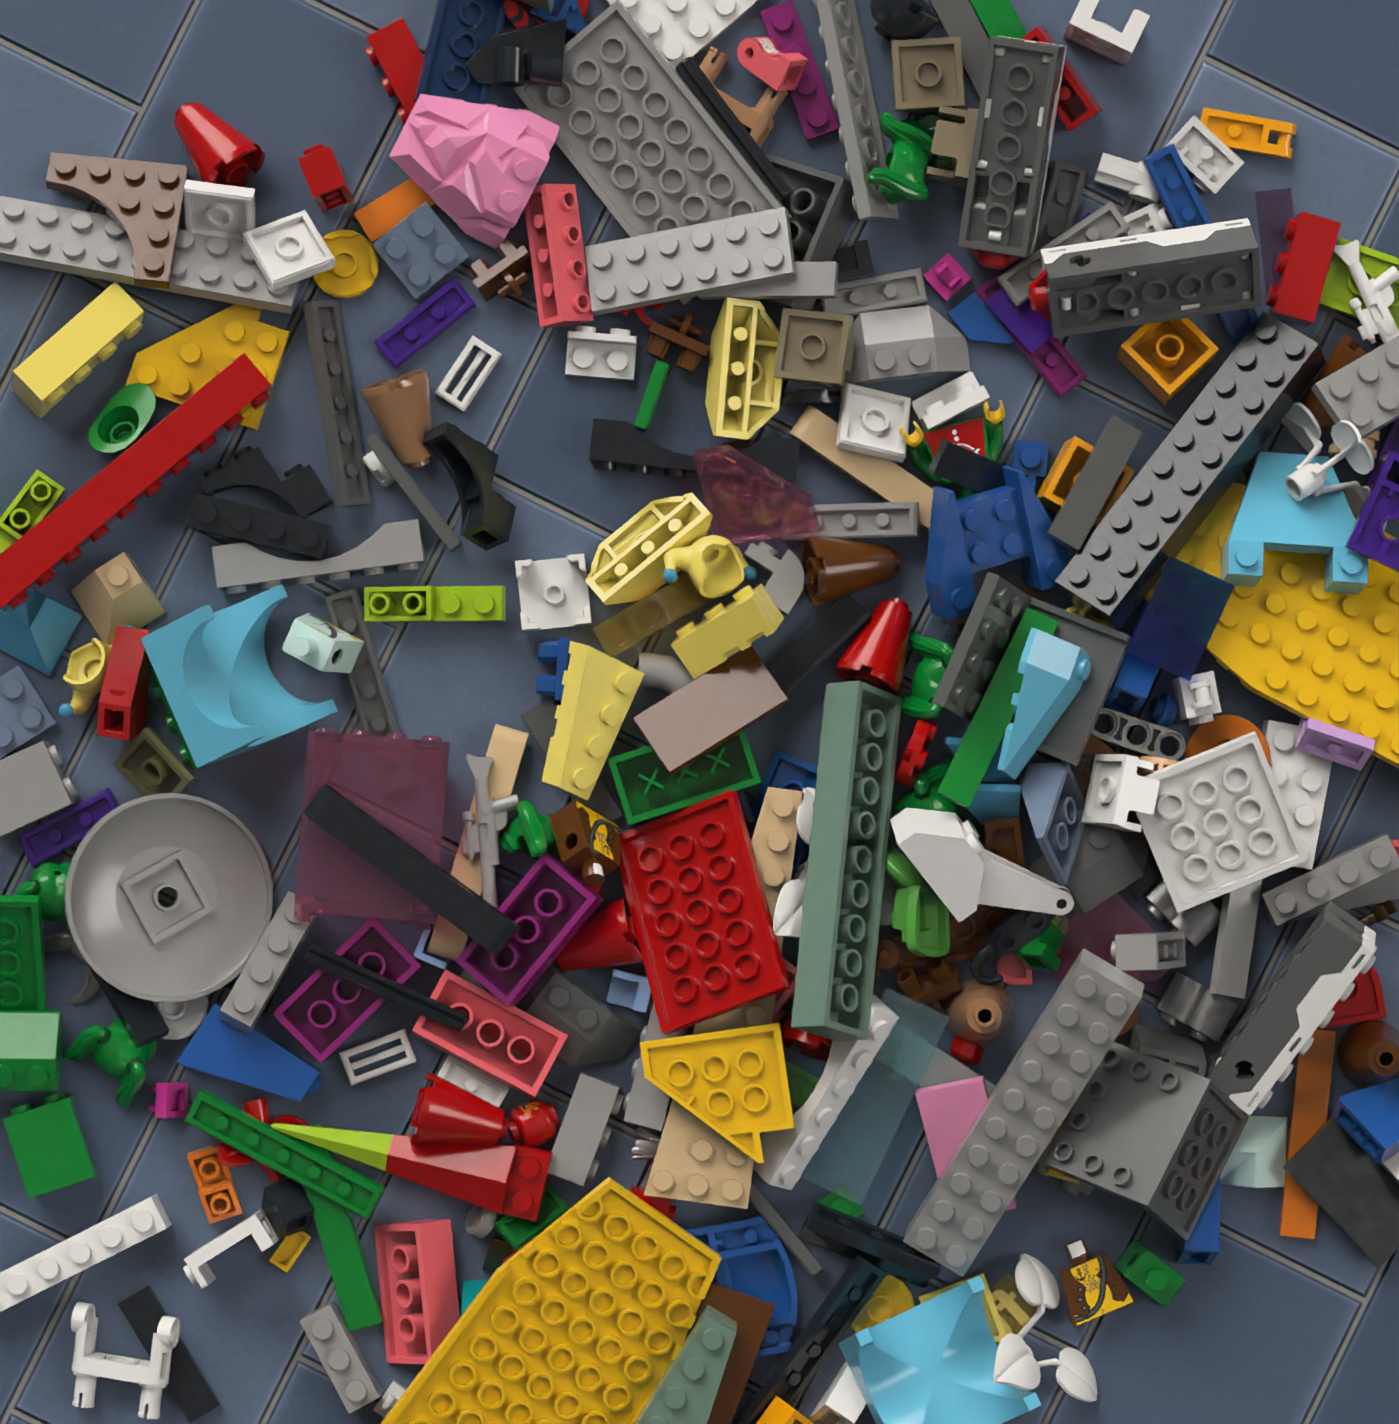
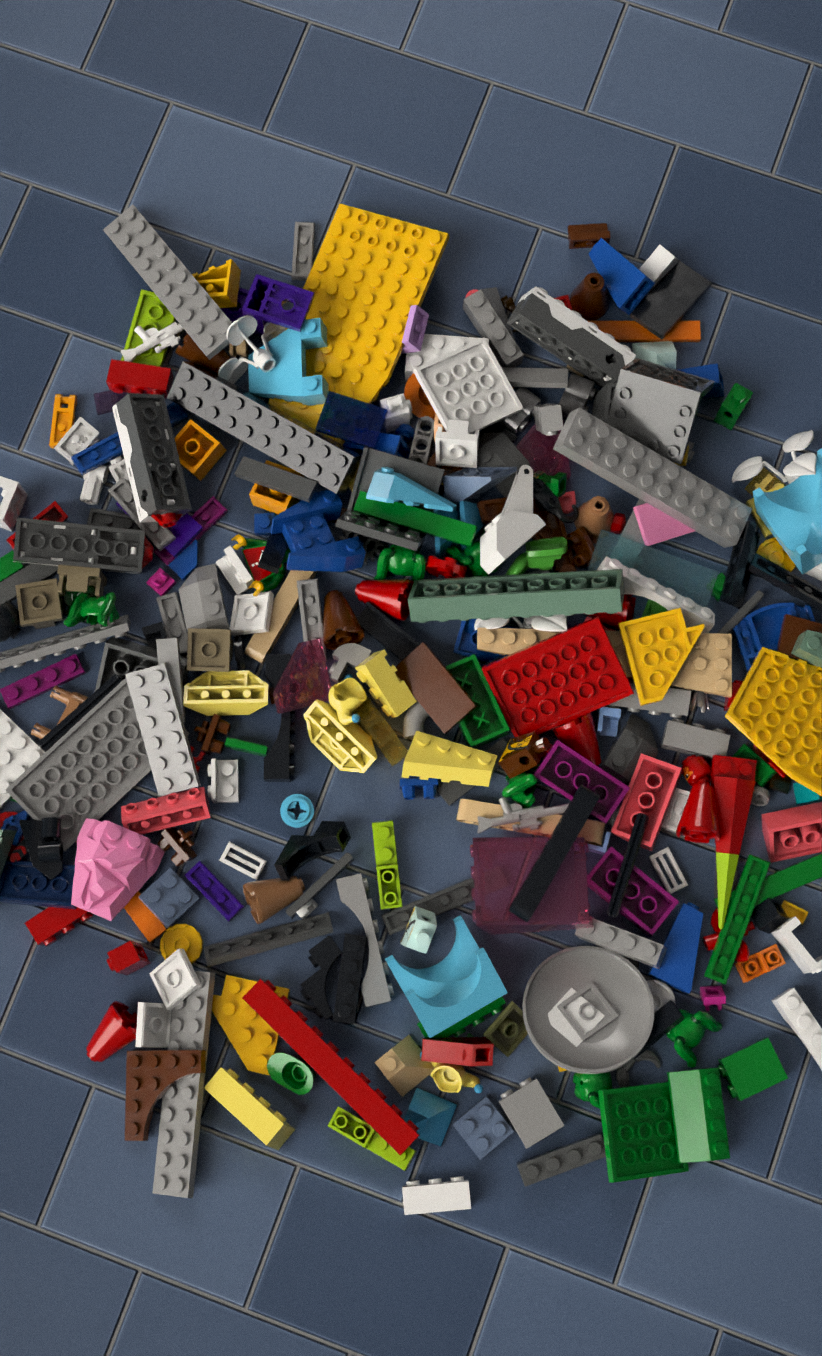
camera: 95 degrees left, 10 degrees down
(66, 828) = (551, 1081): dark purple tile -> none
(150, 853) = (561, 1024): none -> white tile
(529, 455) = (291, 803): none -> medium azure gear
(553, 593) = (372, 793): white panel -> none
(770, 64) = (39, 697): coral leg -> none
(1091, 1284) = (745, 439): torso -> none

